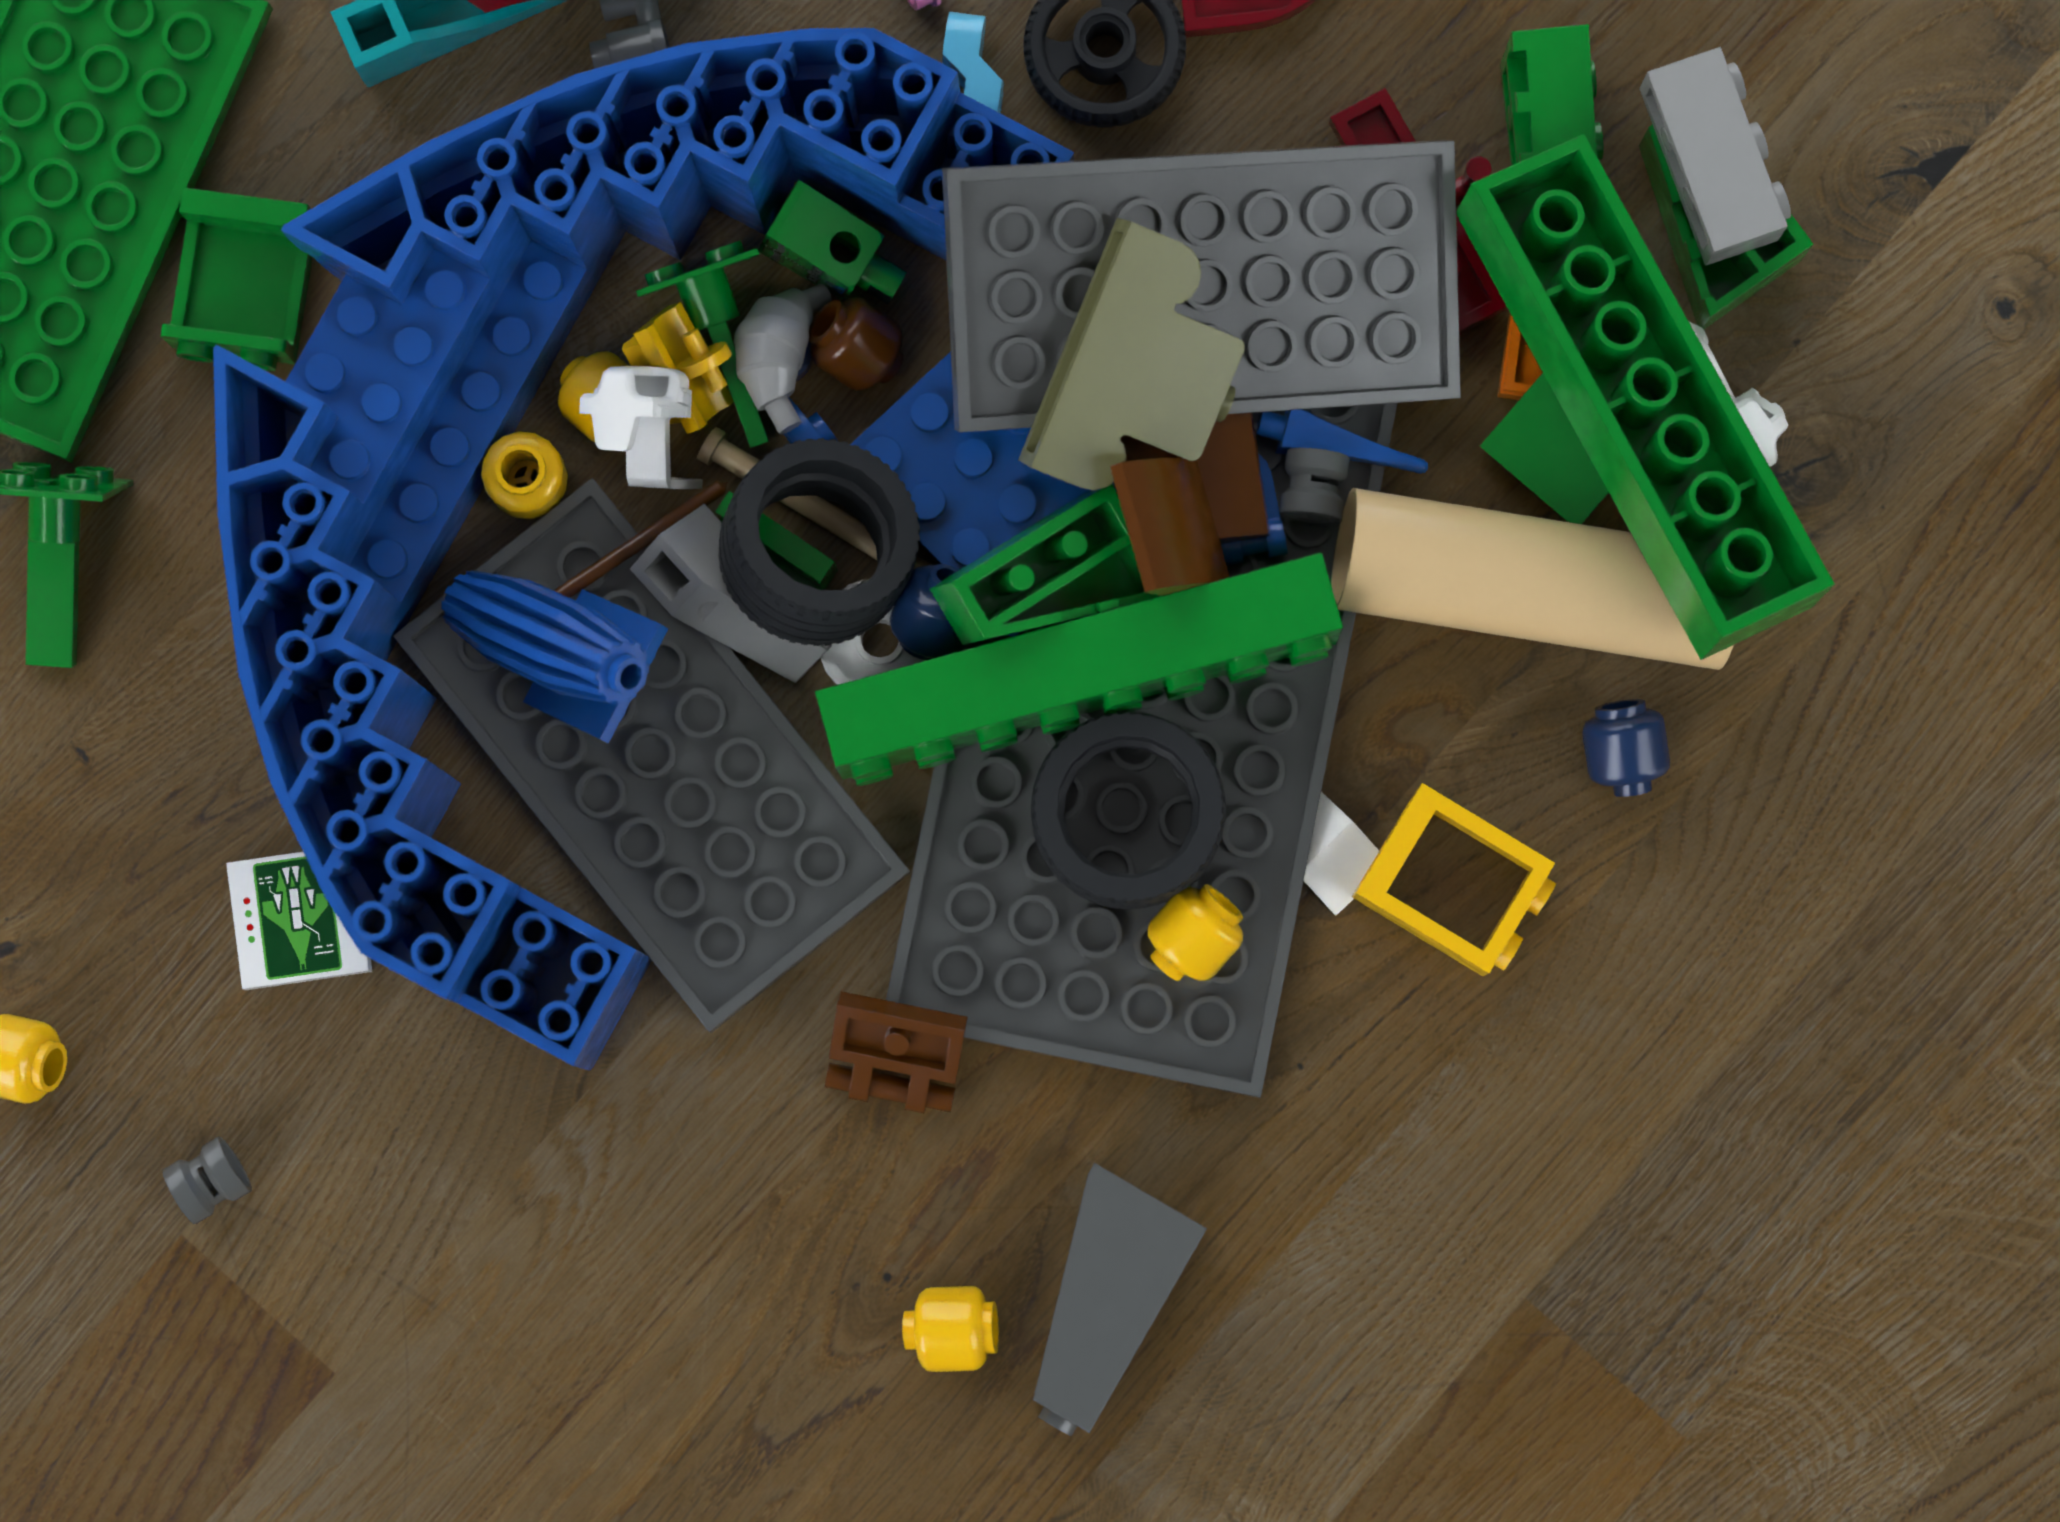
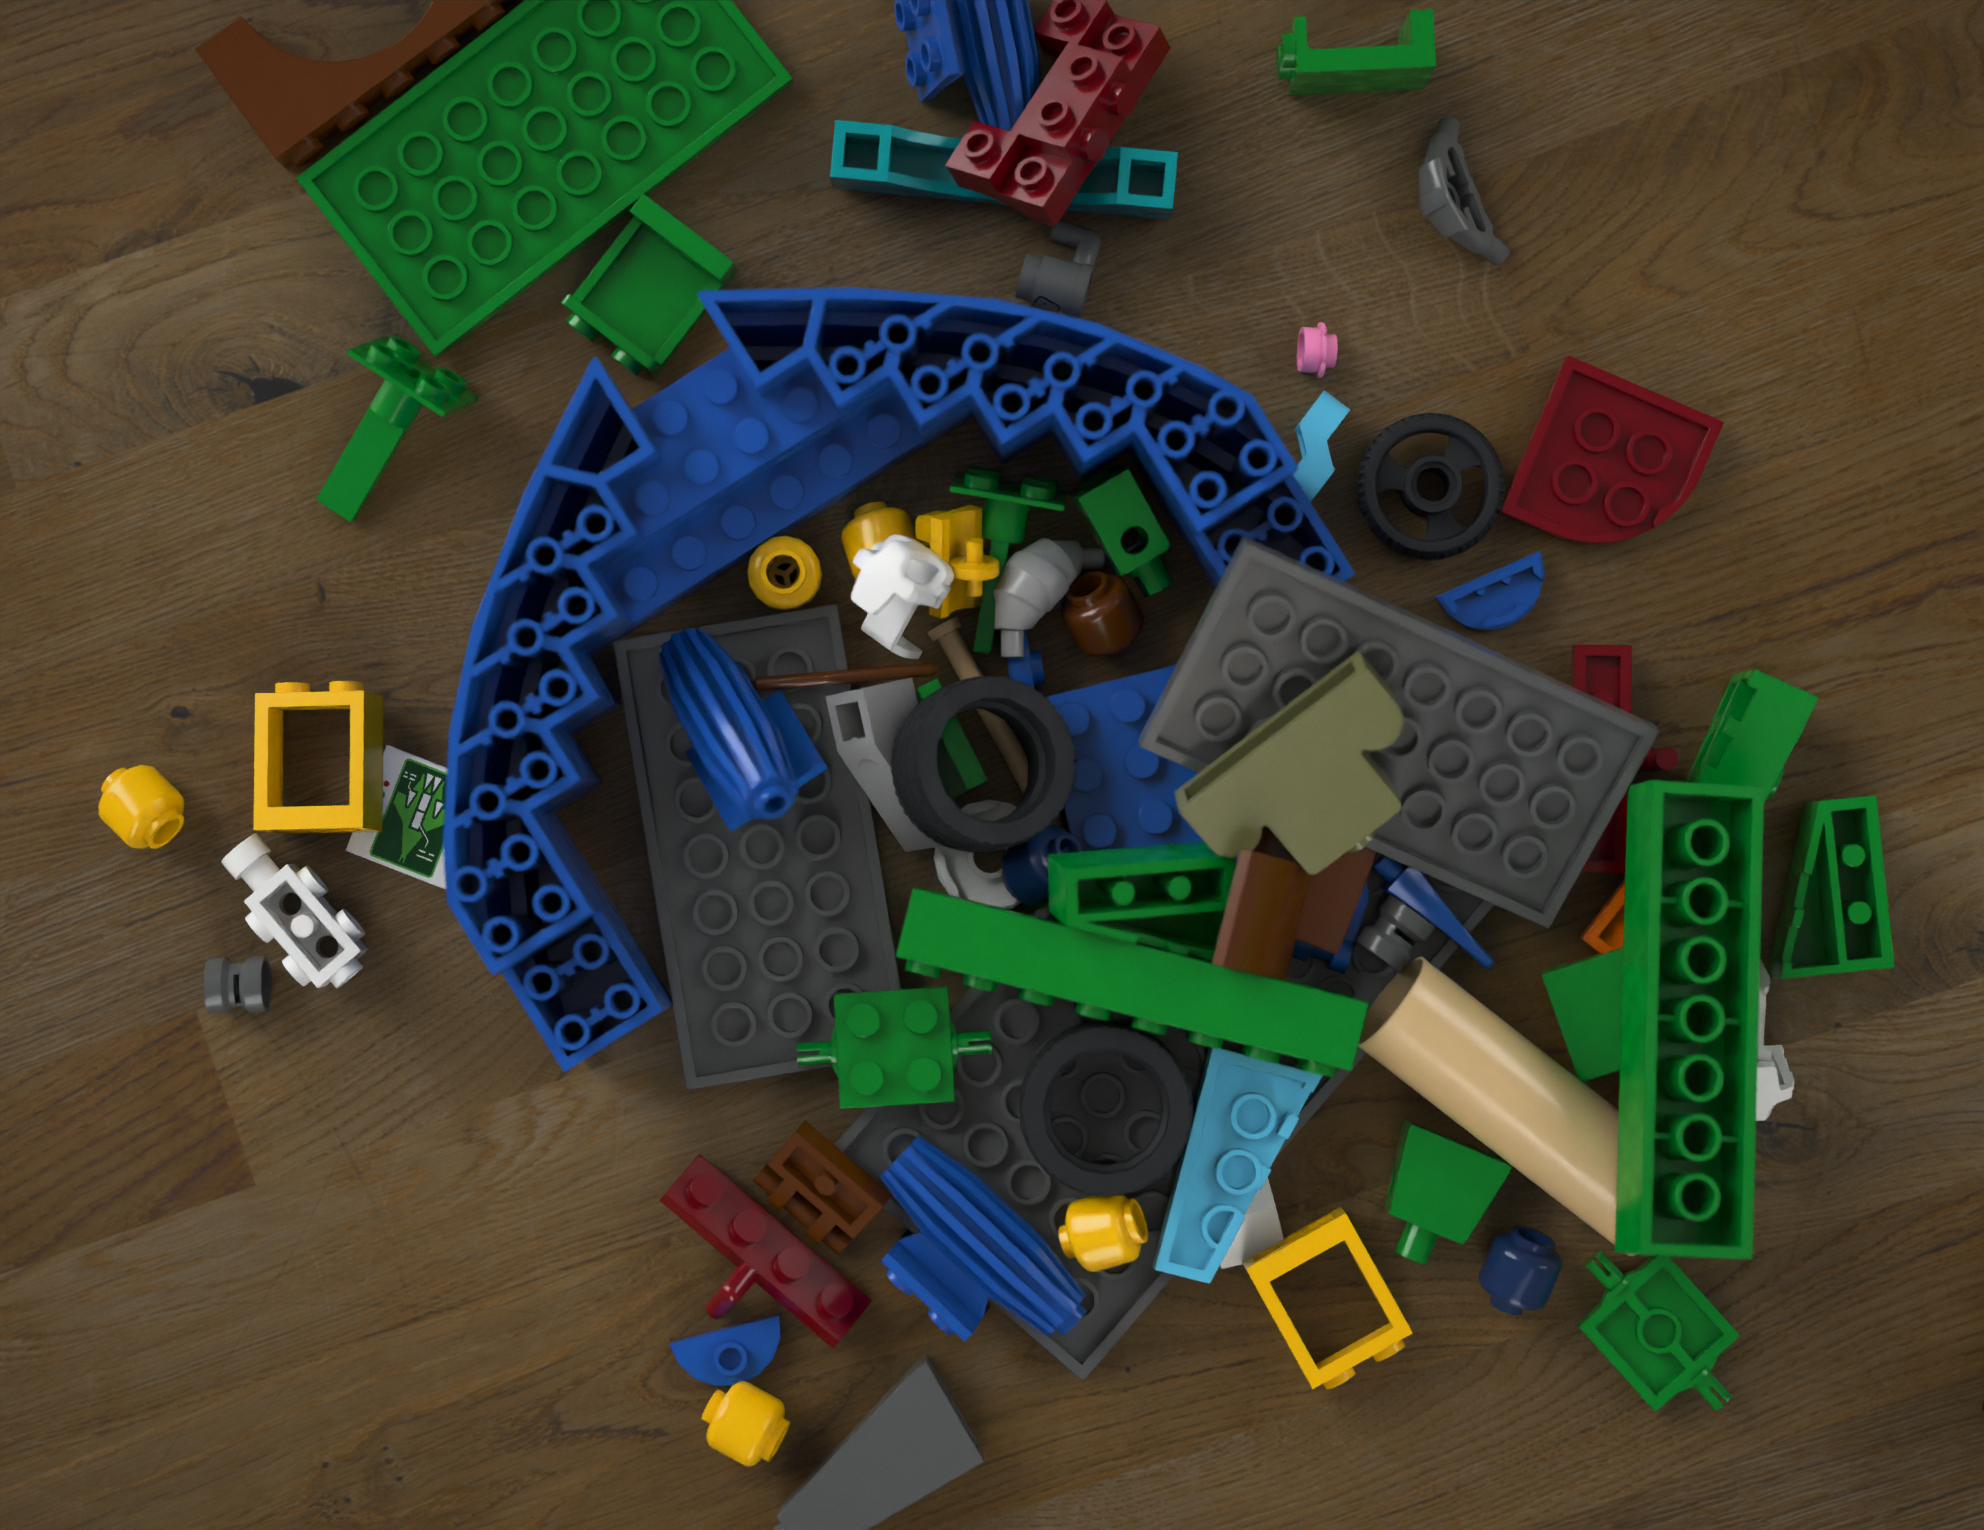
camera: 30 degrees right, 5 degrees up
(199, 968) = (366, 760): none -> yellow window
(245, 1087) = (303, 931): none -> white brick
(875, 1152) = (763, 1254): none -> dark red plate
(889, 873) = (894, 1048): none -> green plate
(898, 1269) = (731, 1352): none -> blue plate
(1076, 1021) = (972, 1250): none -> blue plate
(1231, 113) = (1497, 597): none -> blue plate
(1270, 762) = (1234, 1136): none -> medium azure wing
(1501, 712) = (1439, 1189): none -> green torso
(1715, 155) = (1858, 857): light grey brick -> none
(1793, 730) = (1658, 1330): none -> green plate

